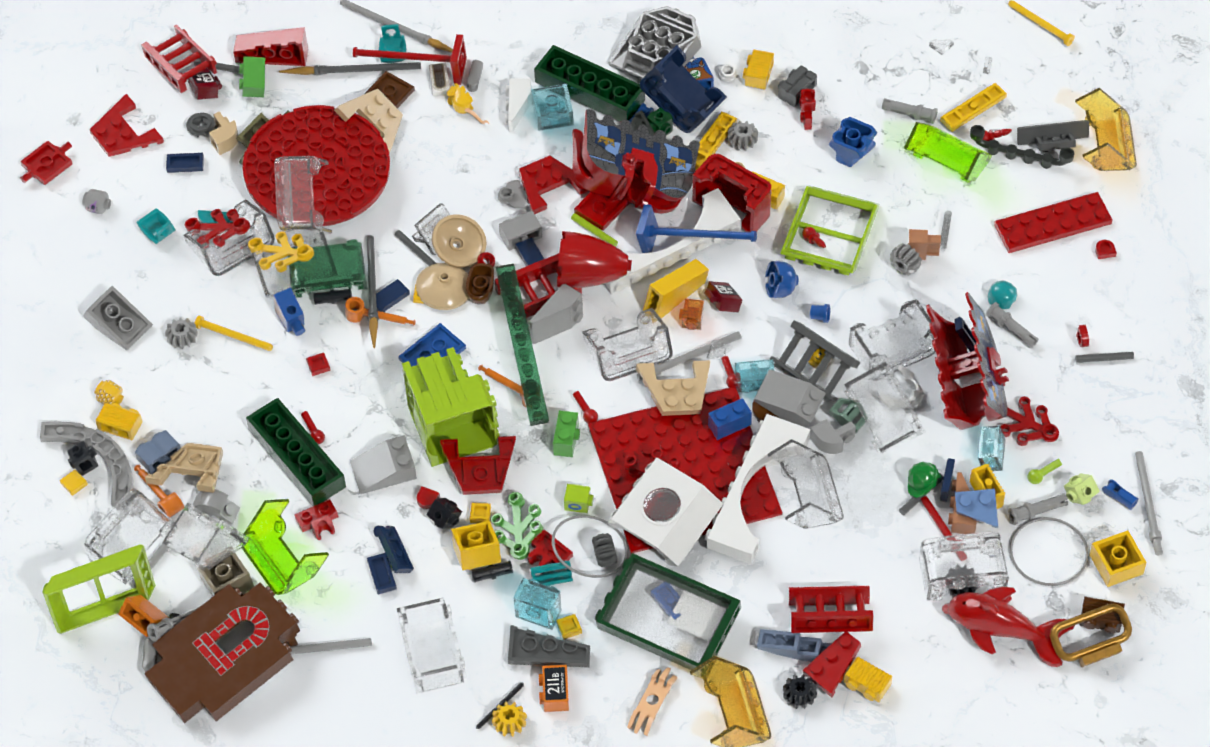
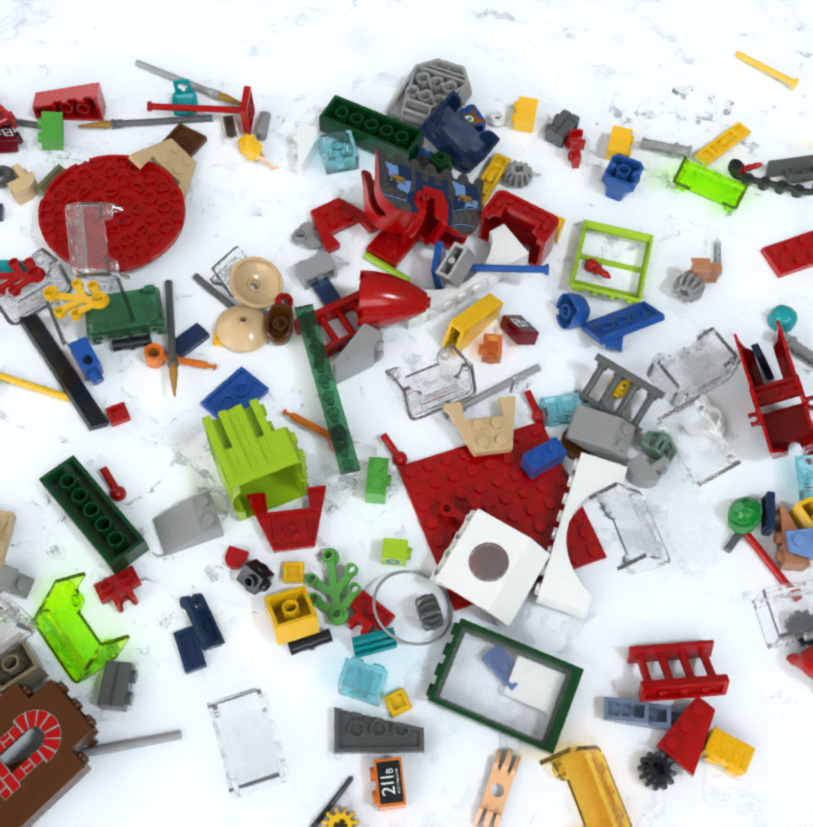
camera: 10 degrees left, 5 degrees up
(265, 321) = (64, 372): none -> black tile
(315, 598) = (117, 685): none -> dark grey brick
(661, 229) = (456, 264): none -> light grey brick
(830, 292) = (622, 322): none -> blue tile
(858, 103) = (619, 142): none -> yellow brick

